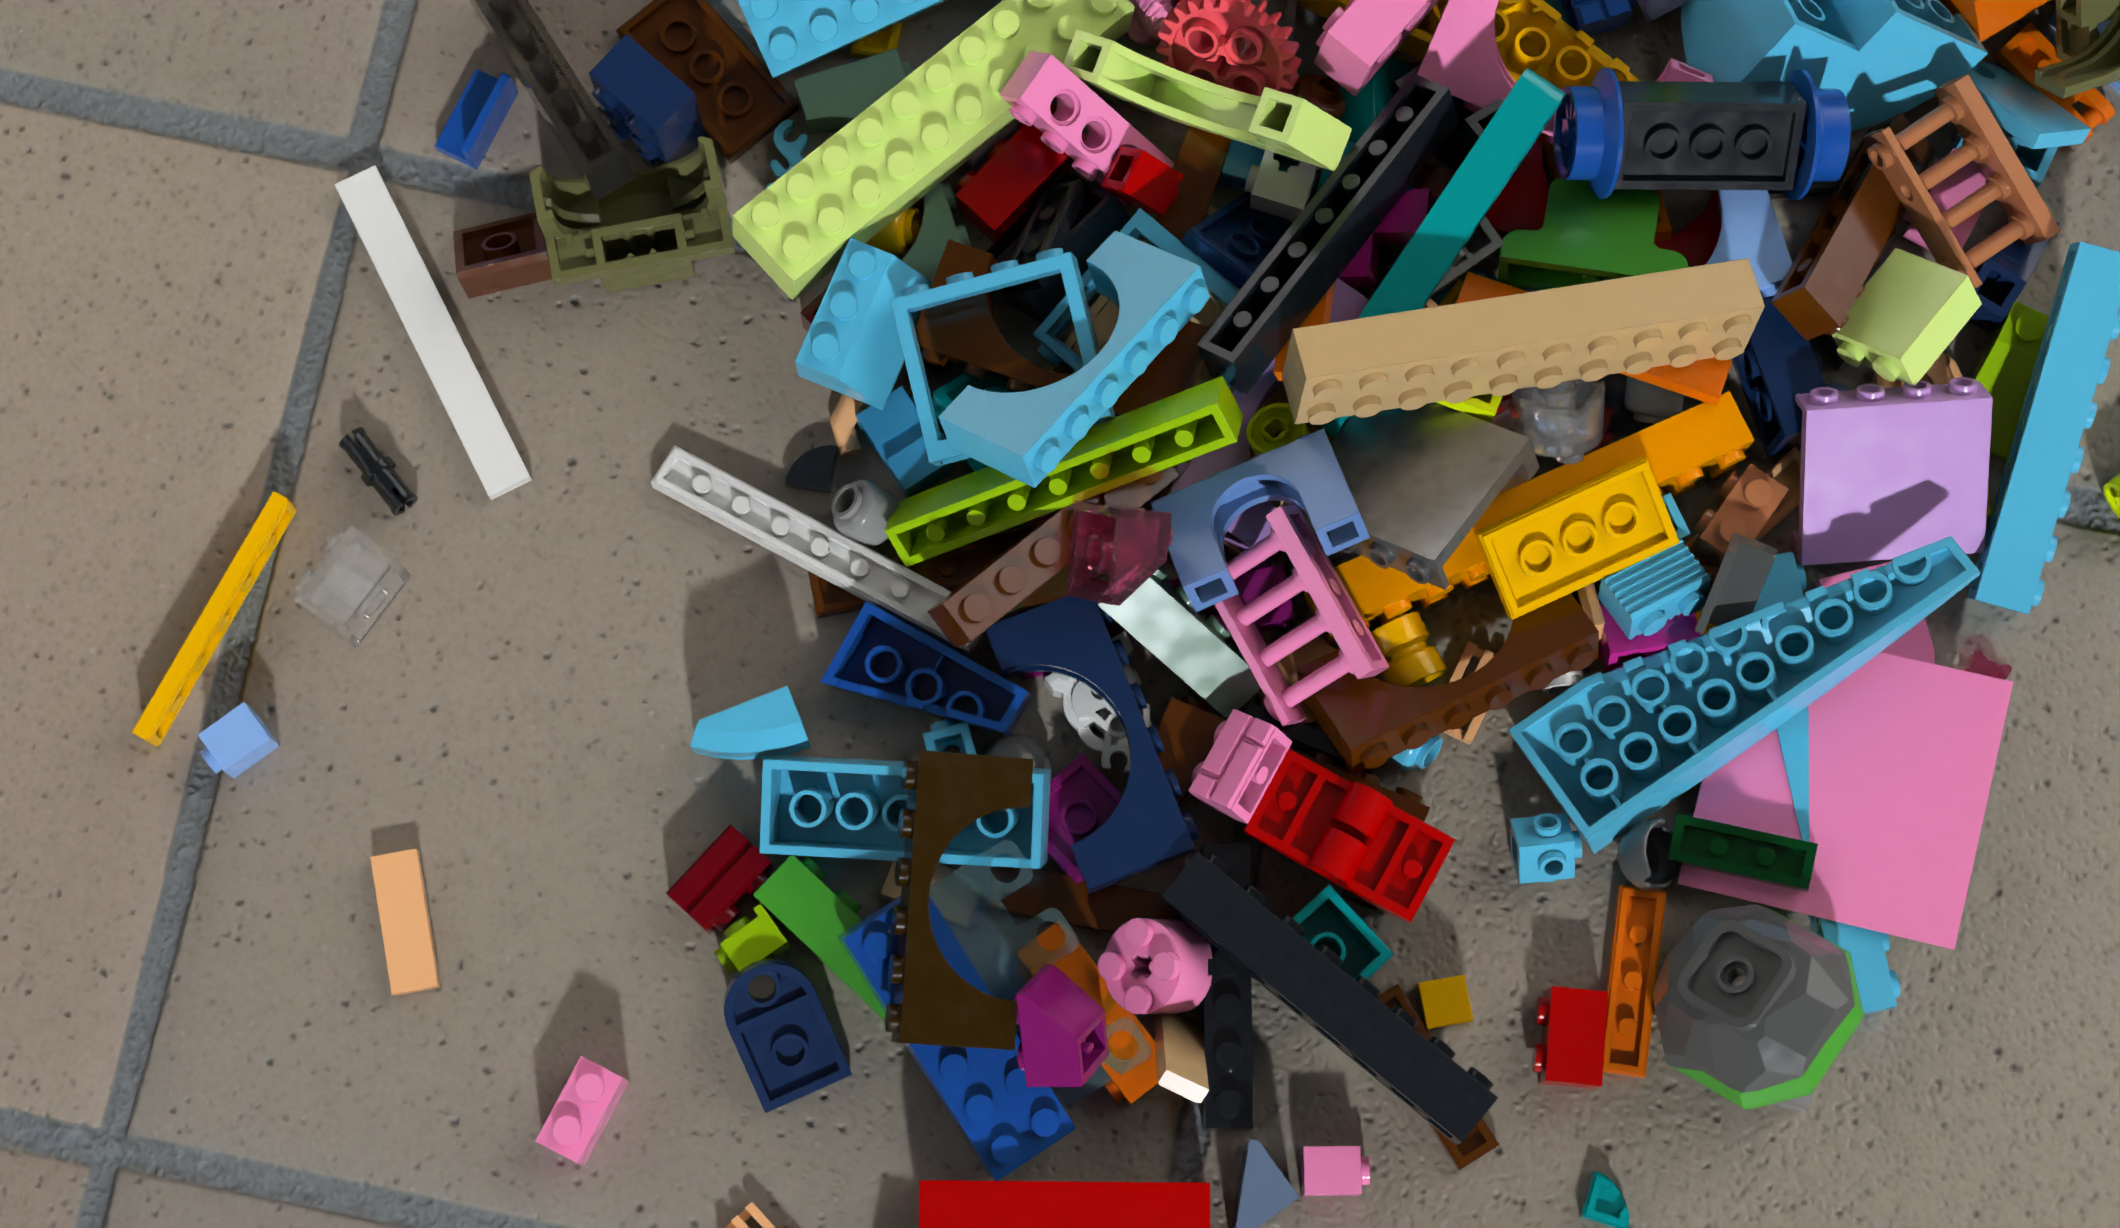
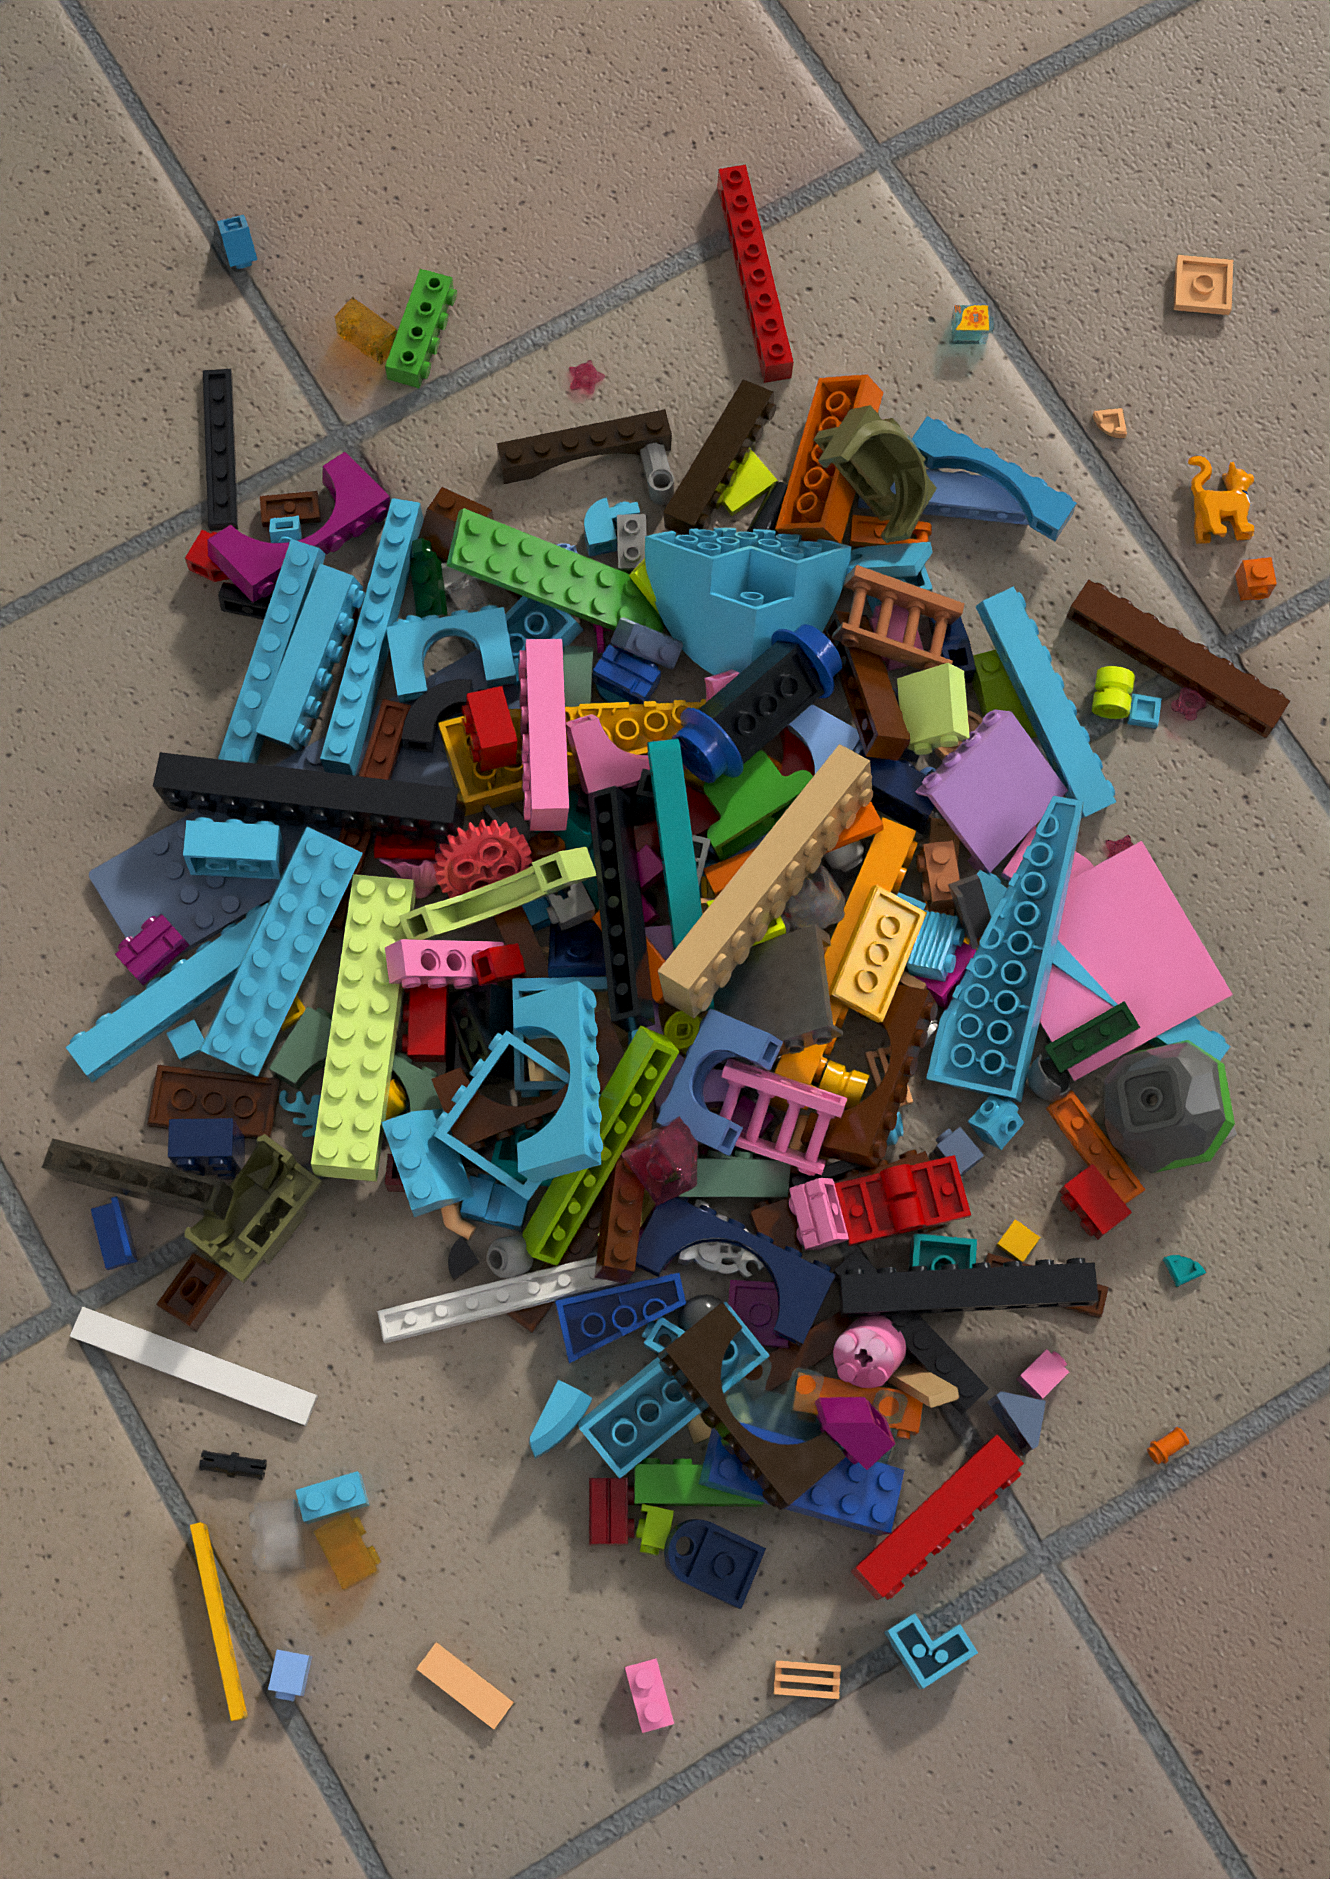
camera: 45 degrees left, 5 degrees down
(412, 668) = (347, 1550): none -> clear yellow brick
(446, 598) = (332, 1497): none -> medium azure brick
(1474, 842) = (961, 1146): none -> sand blue brick

